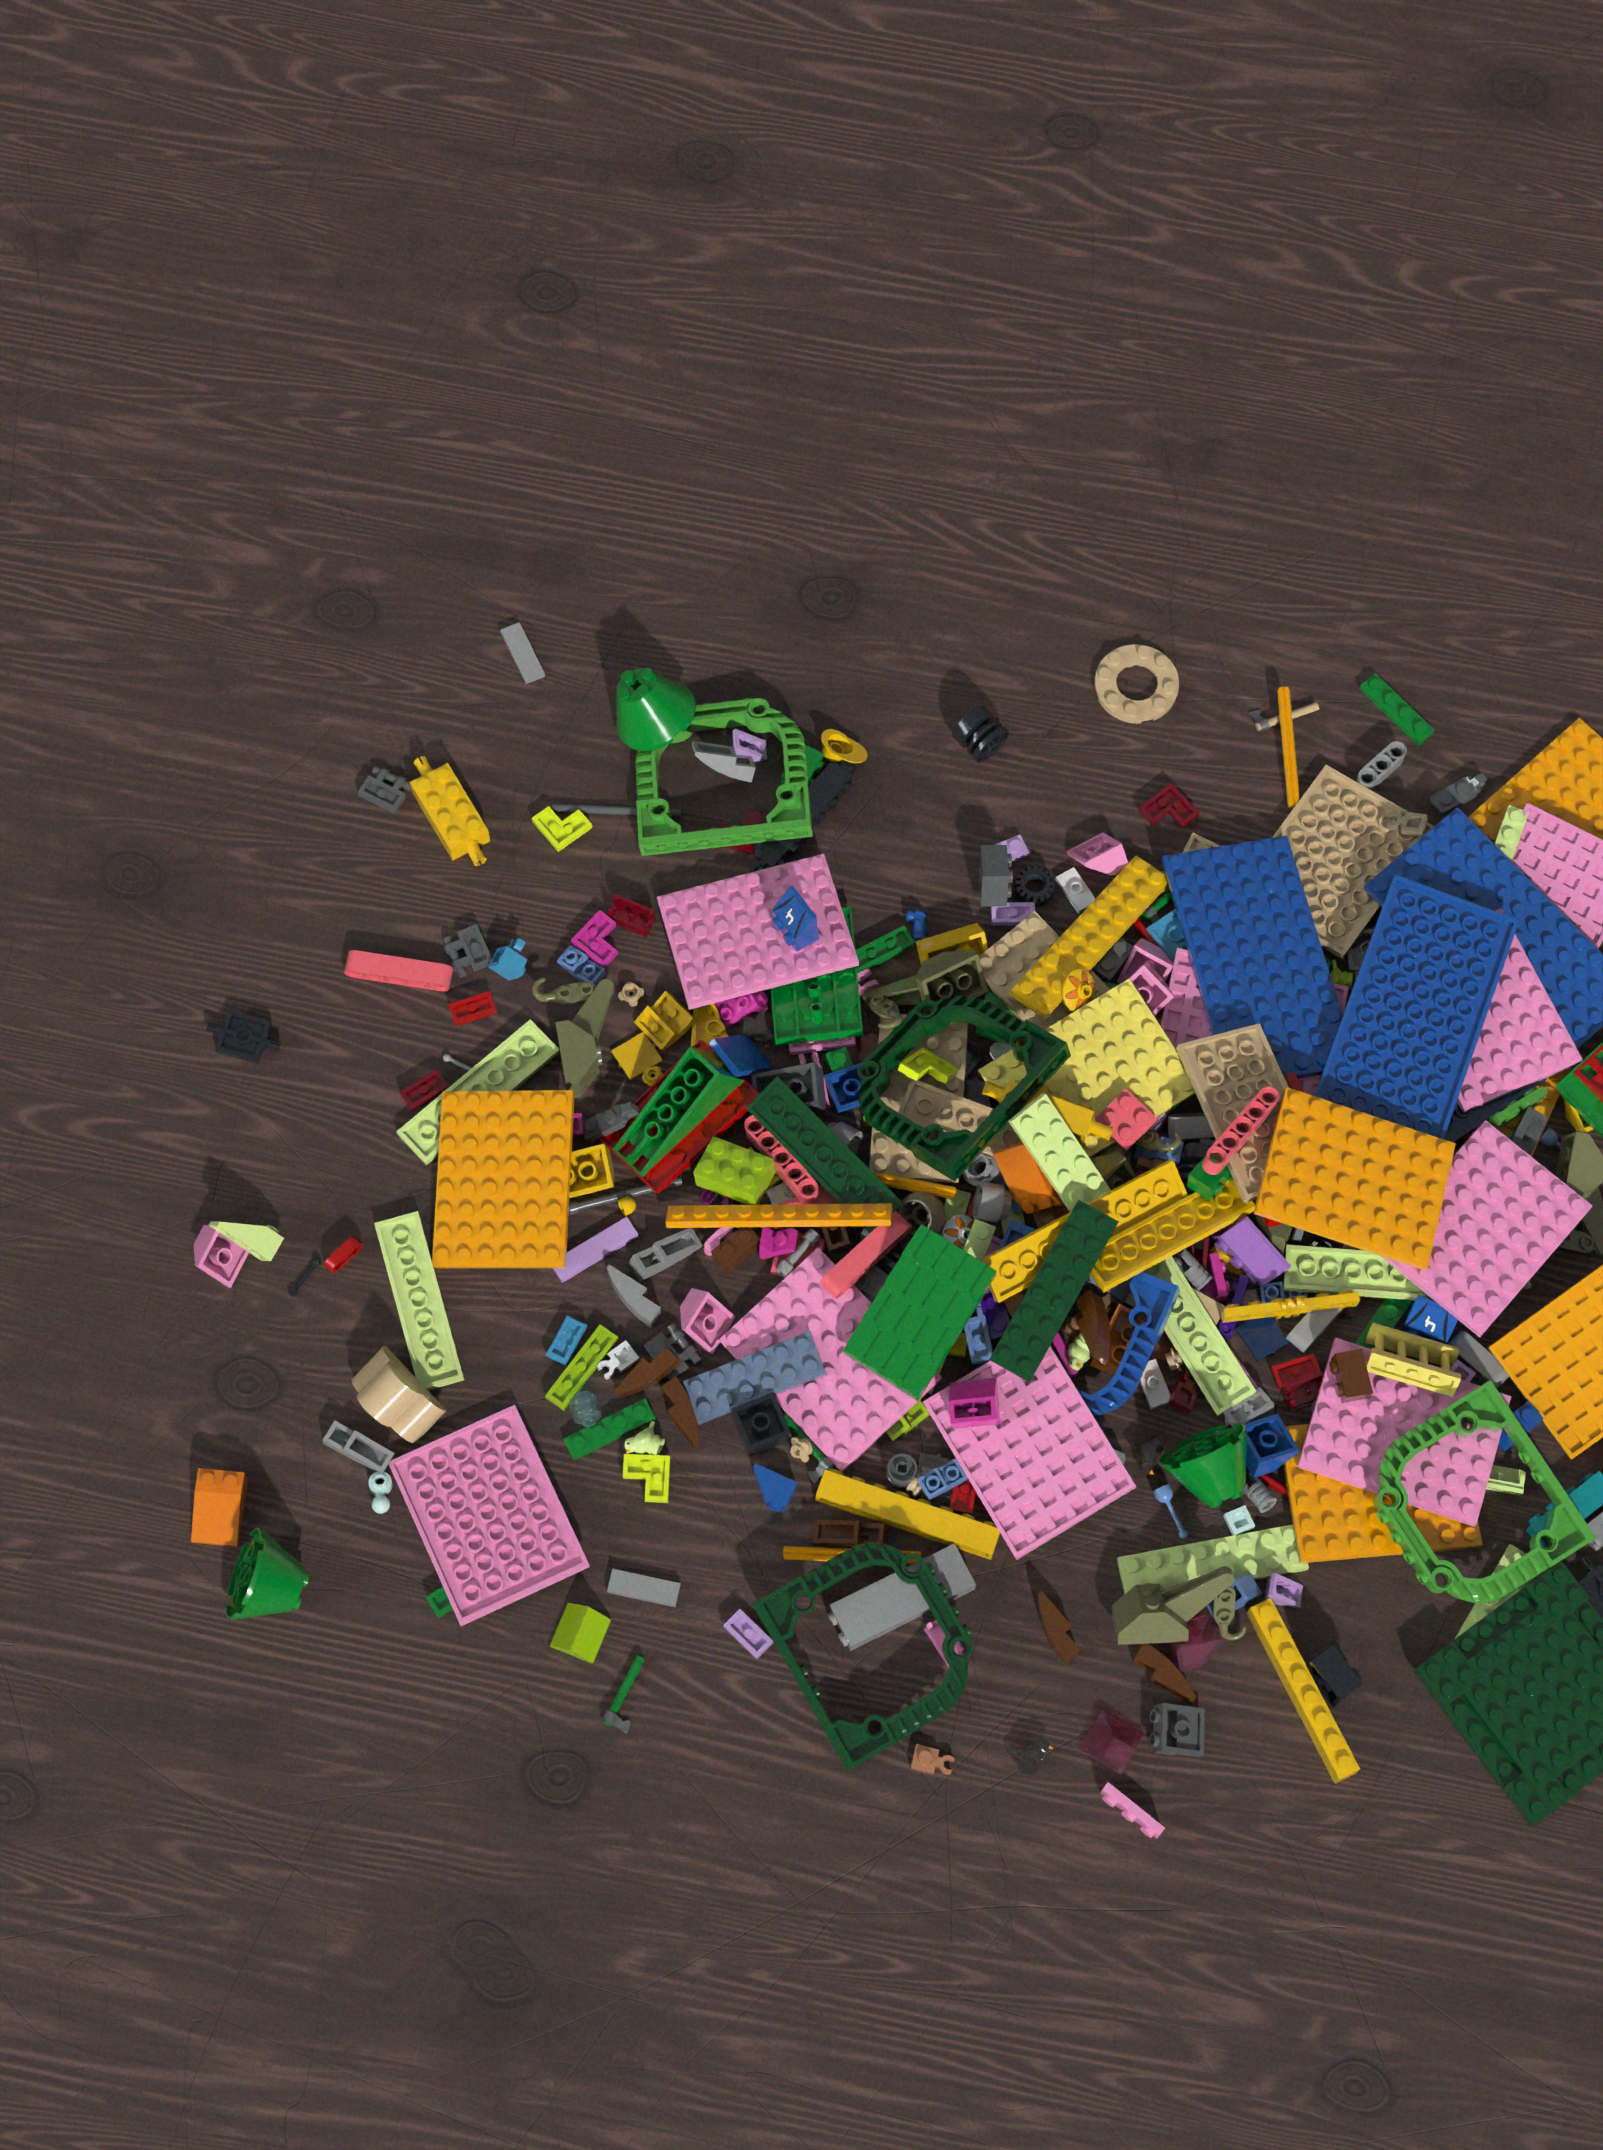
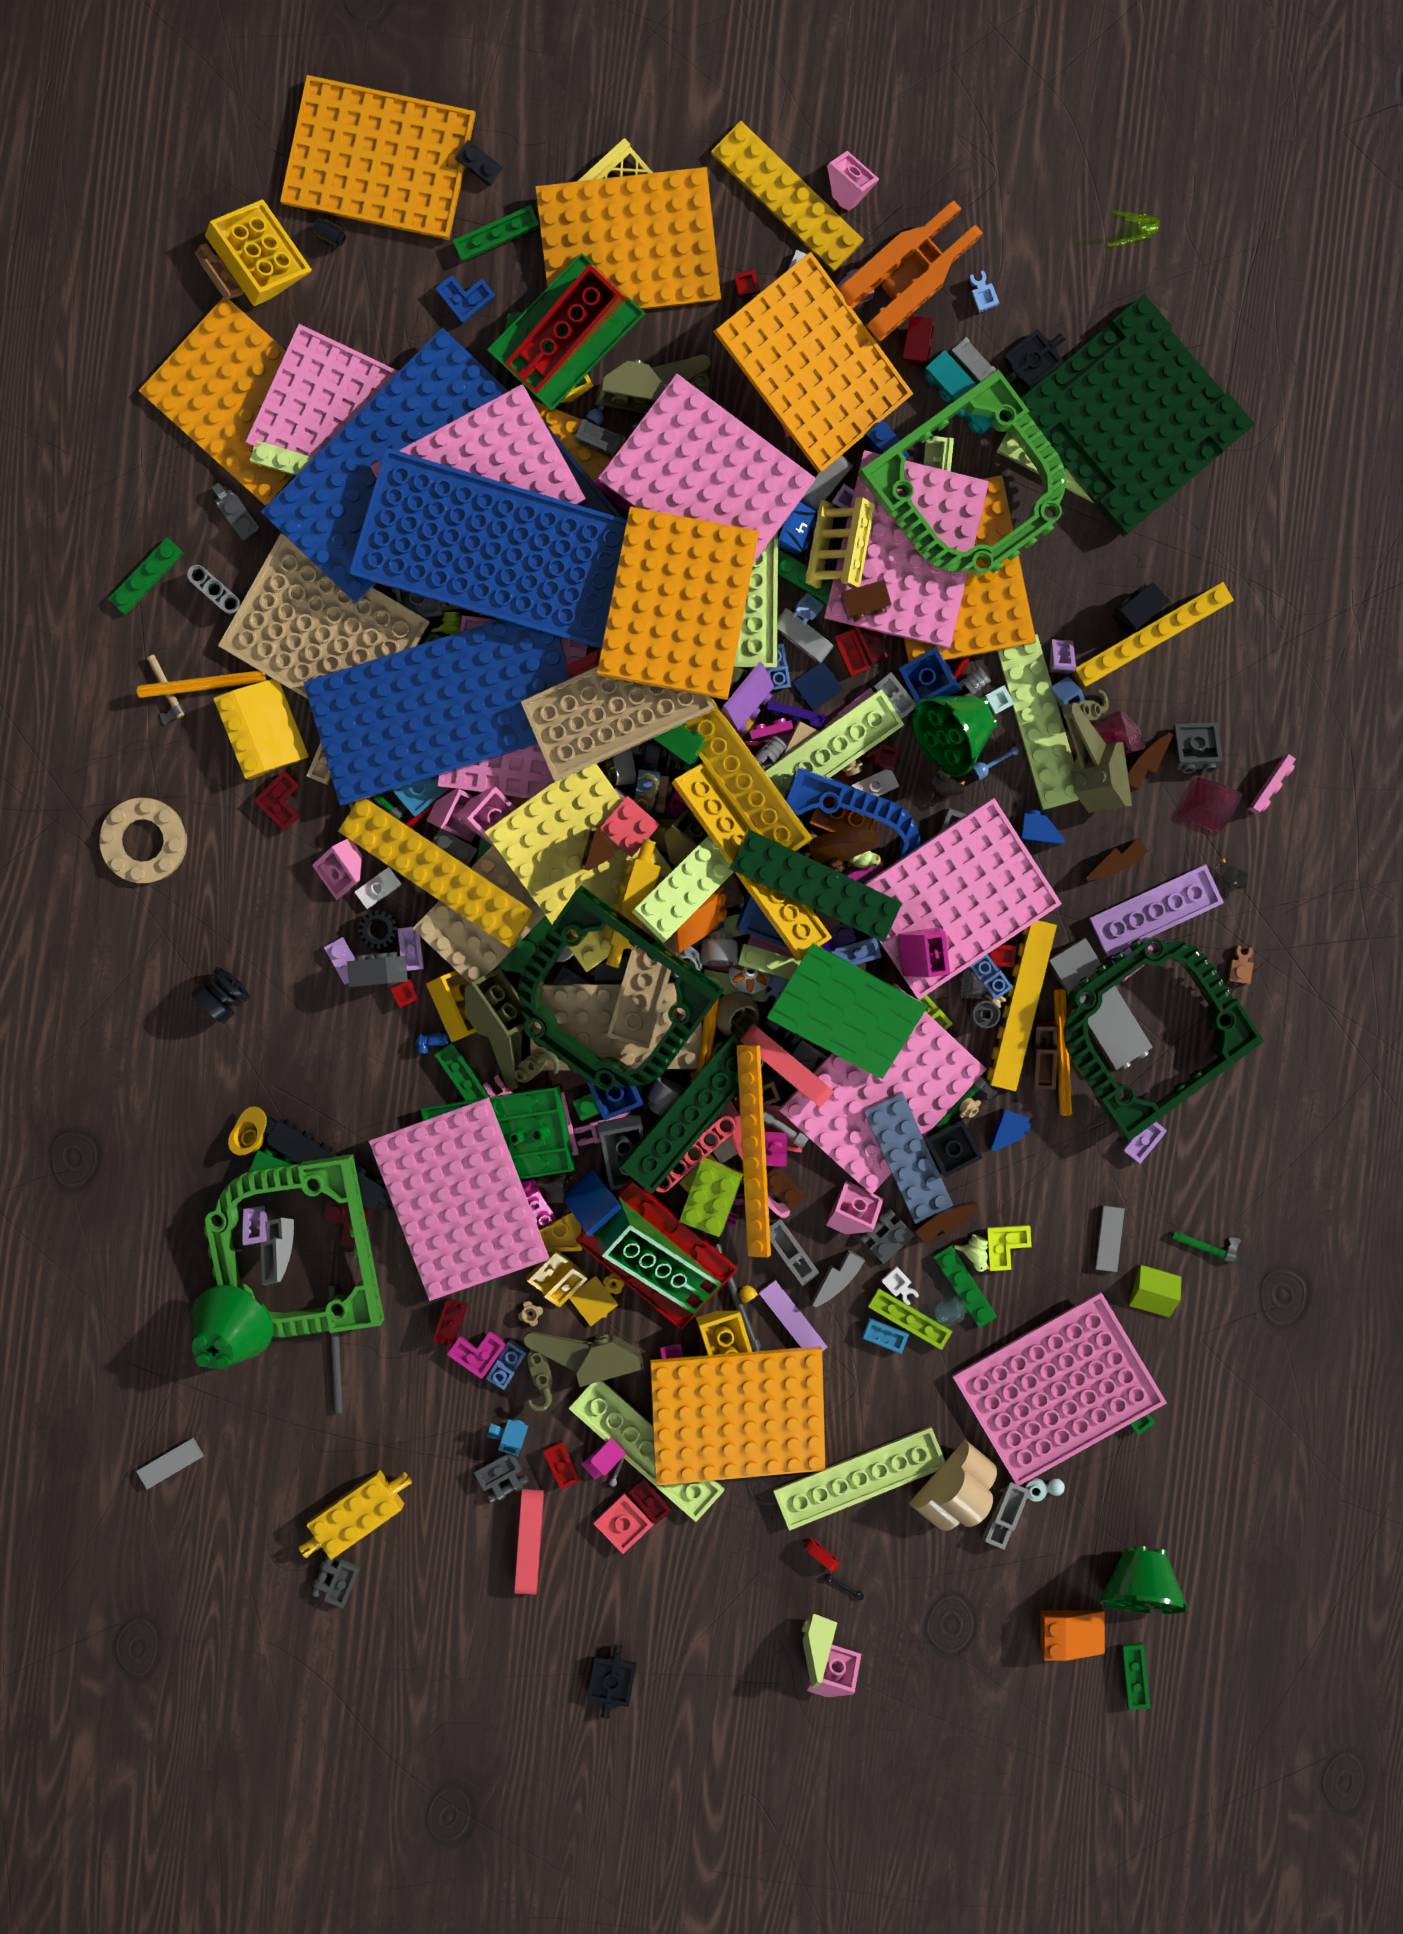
camera: 90 degrees left, 20 degrees up
(162, 1571) = (1135, 1676): none -> green plate
(404, 1062) = (623, 1523): none -> coral plate
(474, 1047) = (603, 1459): none -> dark pink slope
(560, 832) = (366, 1401): neon yellow plate -> none
(608, 1121) = (668, 1322): dark grey hinge -> none
(648, 1373) = (913, 1256): reddish brown slope -> none
(795, 920) = (454, 1165): blue slope -> none
(926, 1062) = (586, 1022): neon yellow plate -> none
(968, 904) = (405, 993): none -> red plate
(1001, 1671) = (1156, 910): none -> lavender plate
(1078, 989) = (499, 880): yellow dish -> none
(1097, 1549) = (1039, 829): none -> blue slope
(1105, 1079) = (597, 850): none -> reddish brown slope
(1236, 1138) = (637, 708): coral beam -> none
(1241, 796) = (261, 728): none -> yellow slope
(1289, 1306) = (799, 663): yellow hinge -> none
(1345, 1326) = (808, 608): none -> light blue plate
(1410, 824) = (282, 557): dark tan plate -> none
(1517, 1107) = (581, 452): bright green wing -> none

